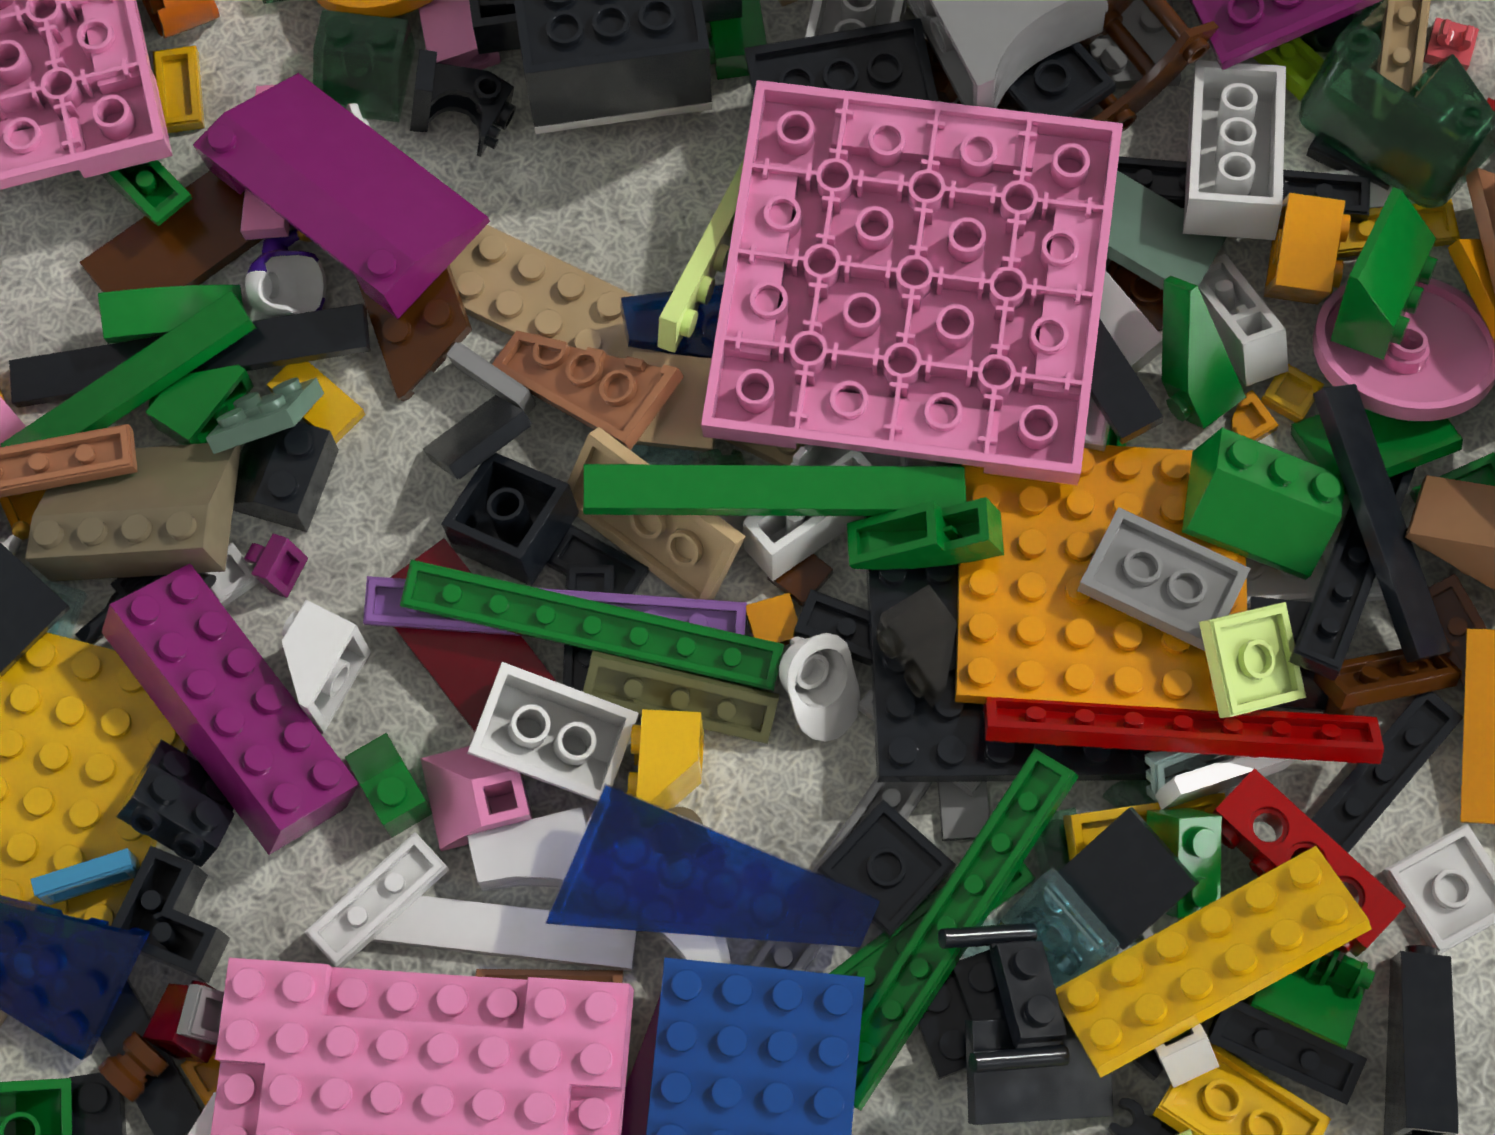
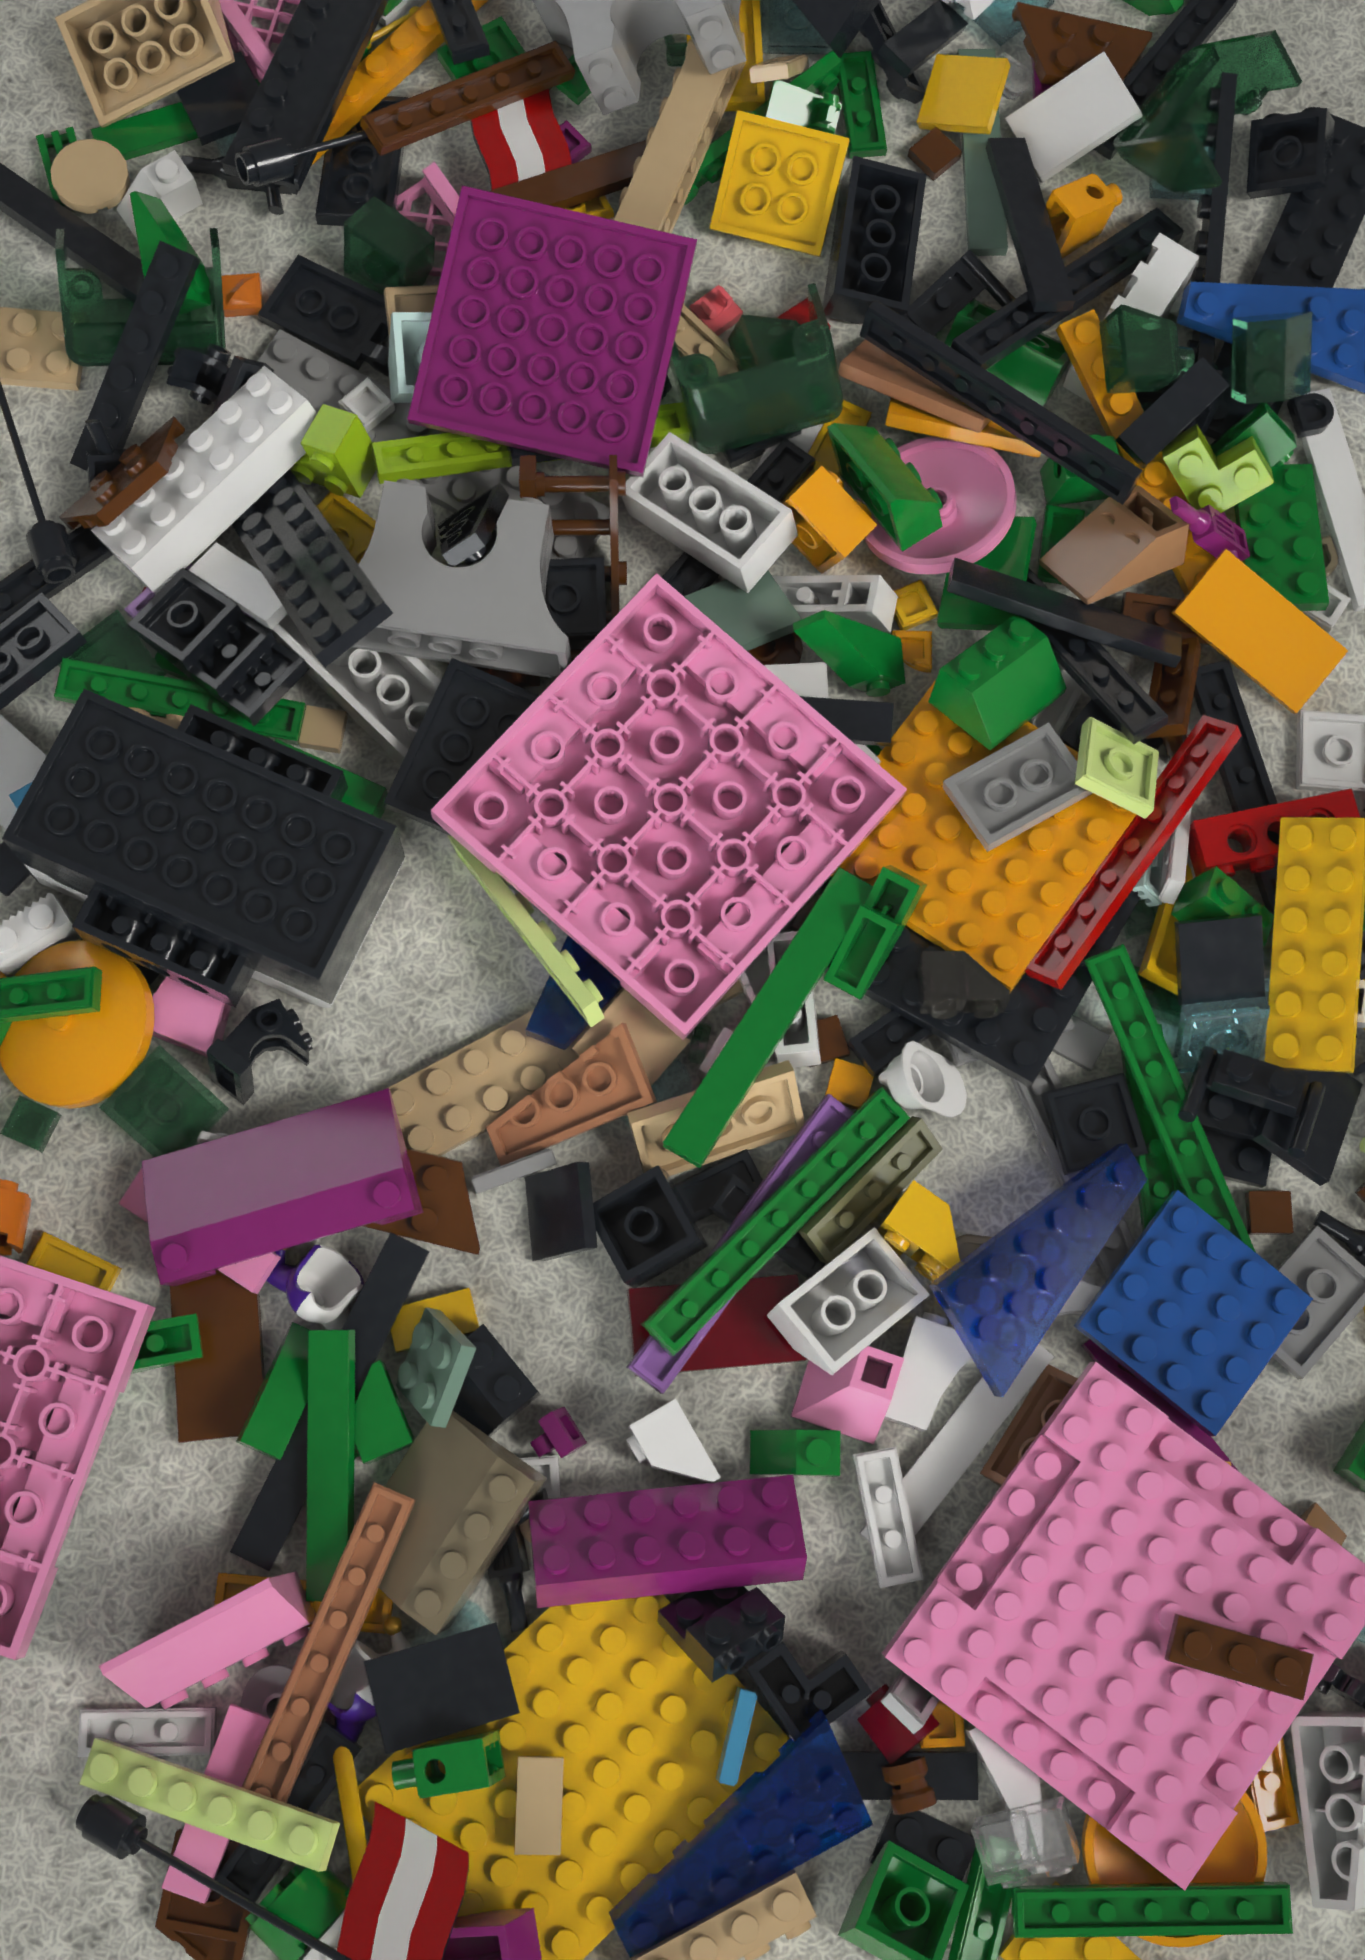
camera: 65 degrees left, 5 degrees up
(915, 1099) = (1269, 1213): none -> reddish brown tile

